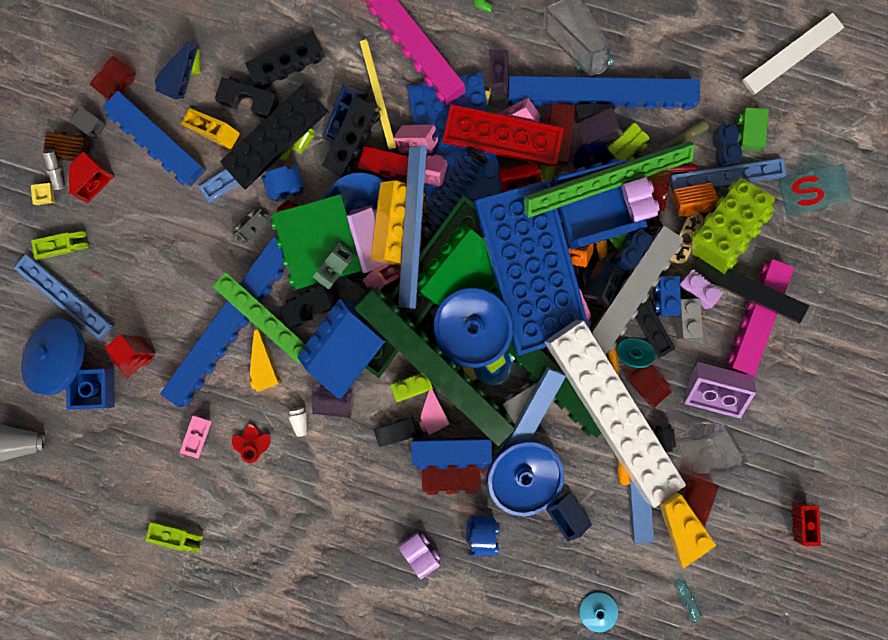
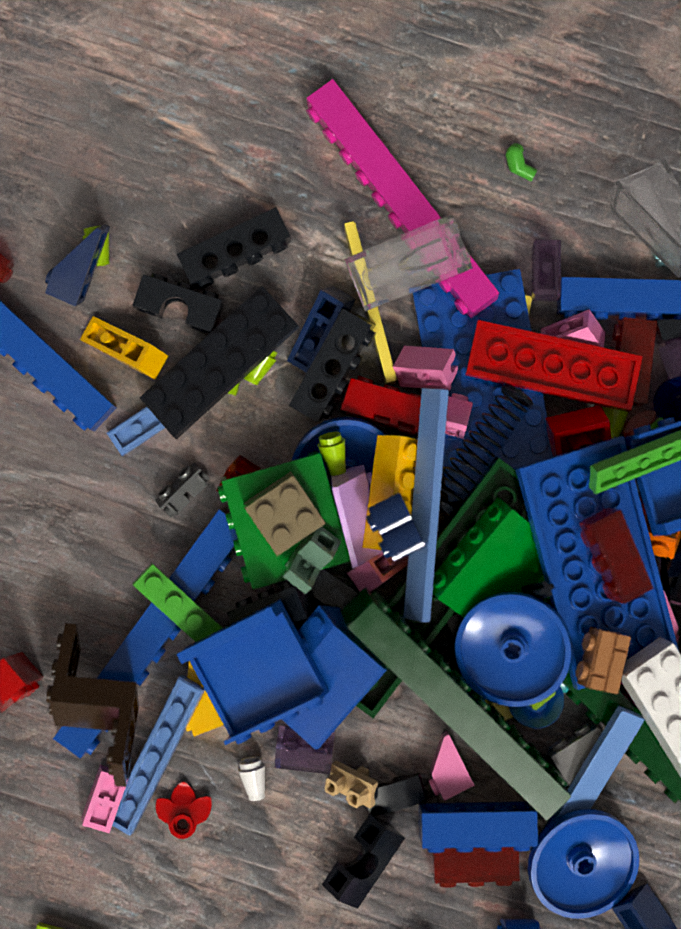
camera: 10 degrees left, 0 degrees up
(185, 367) = (93, 703): none -> dark brown bracket
(231, 404) = (157, 753): none -> medium blue tile
(283, 182) = (232, 430): blue brick -> none
(296, 344) = (256, 672): none -> blue panel
(314, 234) = (283, 513): none -> dark tan brick
(350, 194) = (333, 452): none -> lime cone
(366, 424) = (352, 783): none -> tan hips
(367, 490) = (354, 880): none -> black arch
(390, 242) = (395, 527): none -> dark blue brick
(401, 64) = (408, 262): none -> clear slope
(411, 387) = (417, 730): lime brick -> none
(491, 285) = (539, 589): none -> black axle
(535, 333) = (603, 660): none -> medium nougat brick
(543, 261) = (615, 555): none -> clear red brick

